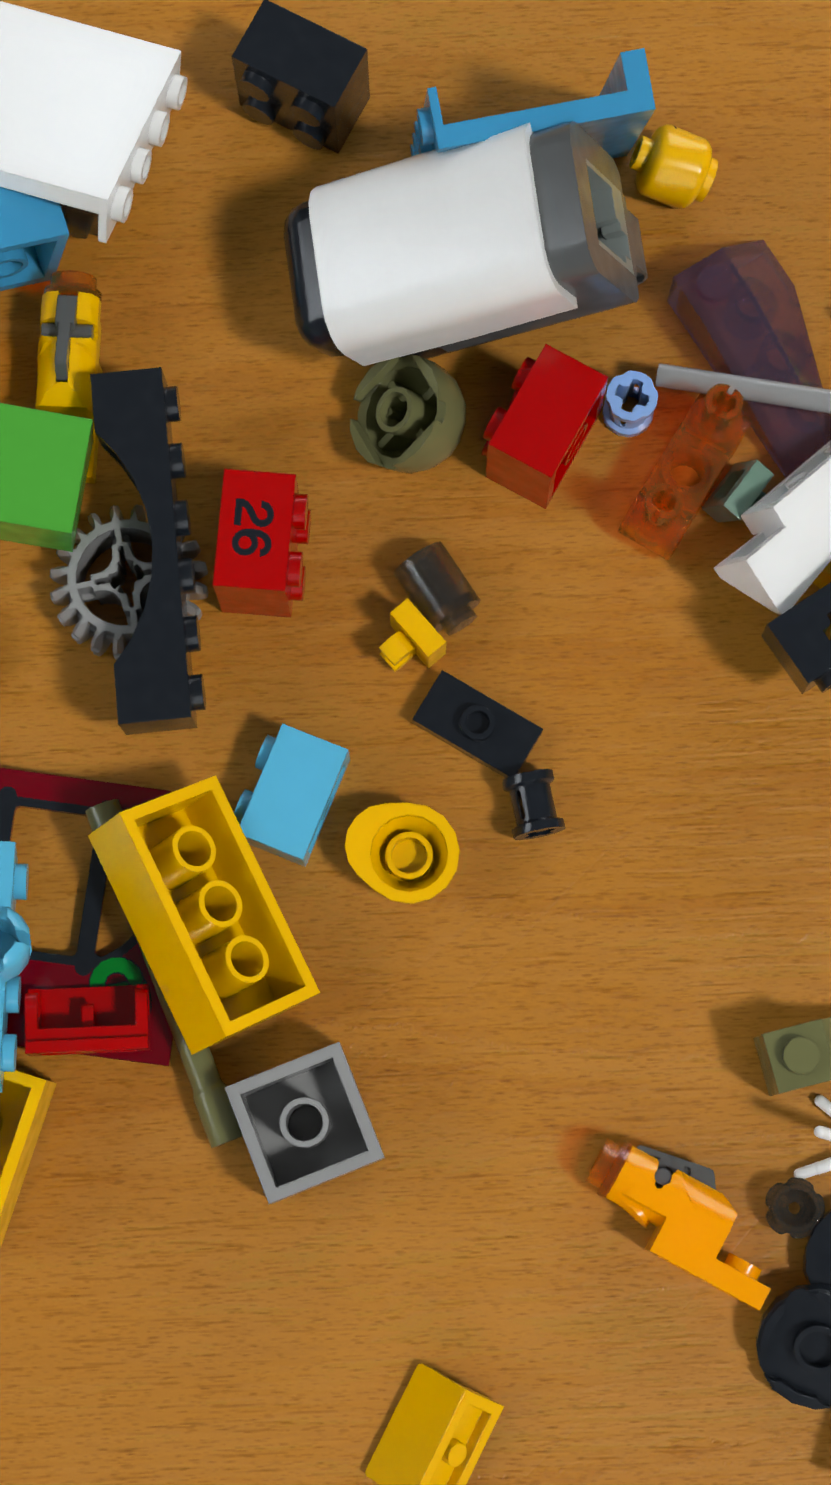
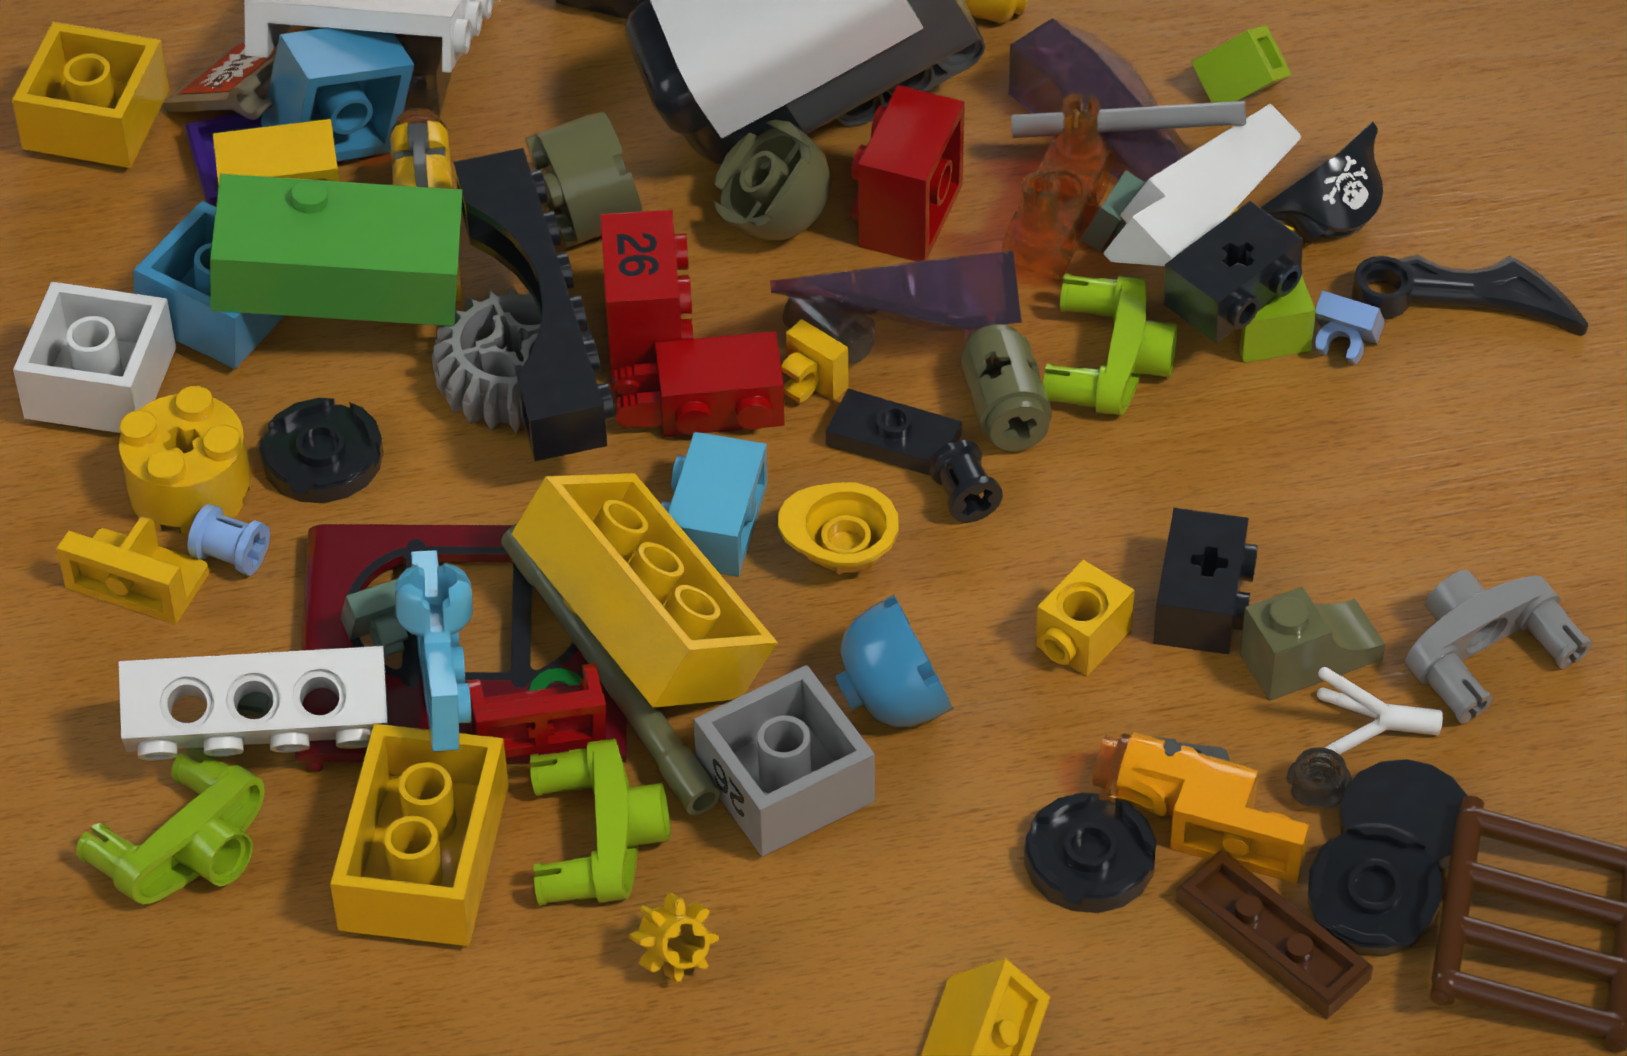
camera: 10 degrees left, 30 degrees down
(151, 1148) = (623, 821): none -> lime connector
(176, 1297) = (665, 923): none -> yellow gear
(227, 376) = (583, 175): none -> olive brick
(307, 649) = (704, 386): none -> red hinge
(424, 1030) = (890, 669): none -> dark azure cylinder
(541, 578) = (929, 293): none -> clear purple wedge
(570, 1248) = (1090, 853): none -> black tile
(602, 727) = (1006, 387): none -> olive piece
(617, 394) = (1002, 174): light blue bush -> none
(627, 970) = (1084, 618): none -> yellow brick
(718, 1368) = (1274, 934): none -> reddish brown tile
(727, 667) = (1134, 350): none -> lime connector
(731, 930) = (1202, 581): none -> black brick

